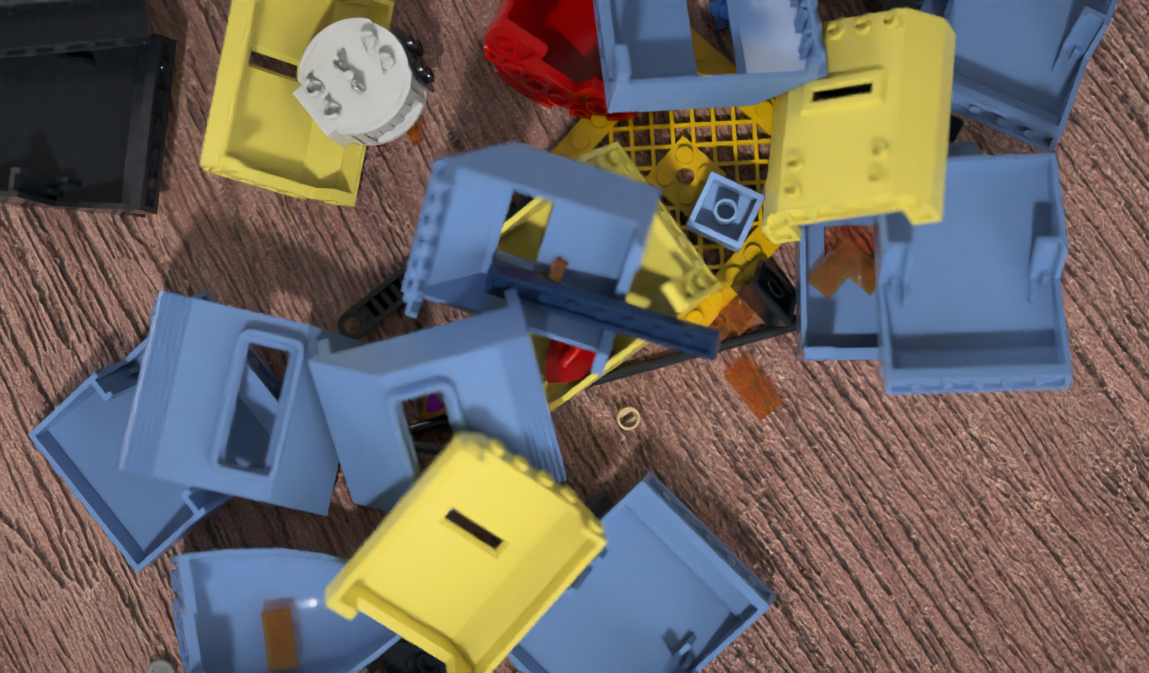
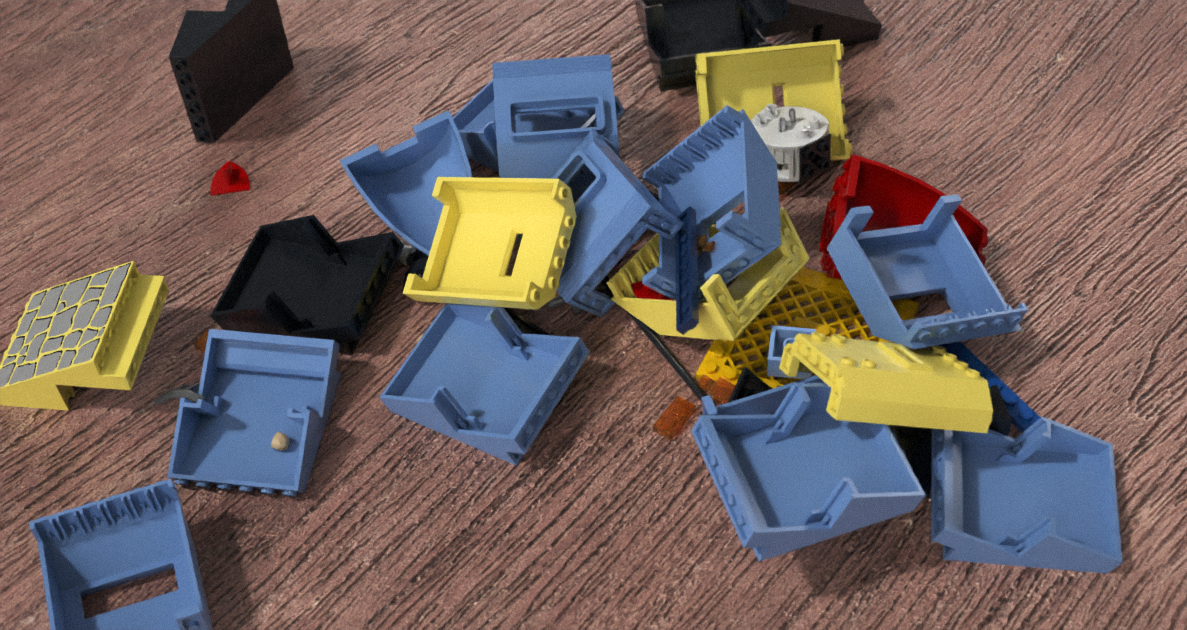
camera: 80 degrees right, 35 degrees down
(279, 639) = (414, 206): clear orange plate -> none
(631, 422) = (628, 346): tan hinge -> none

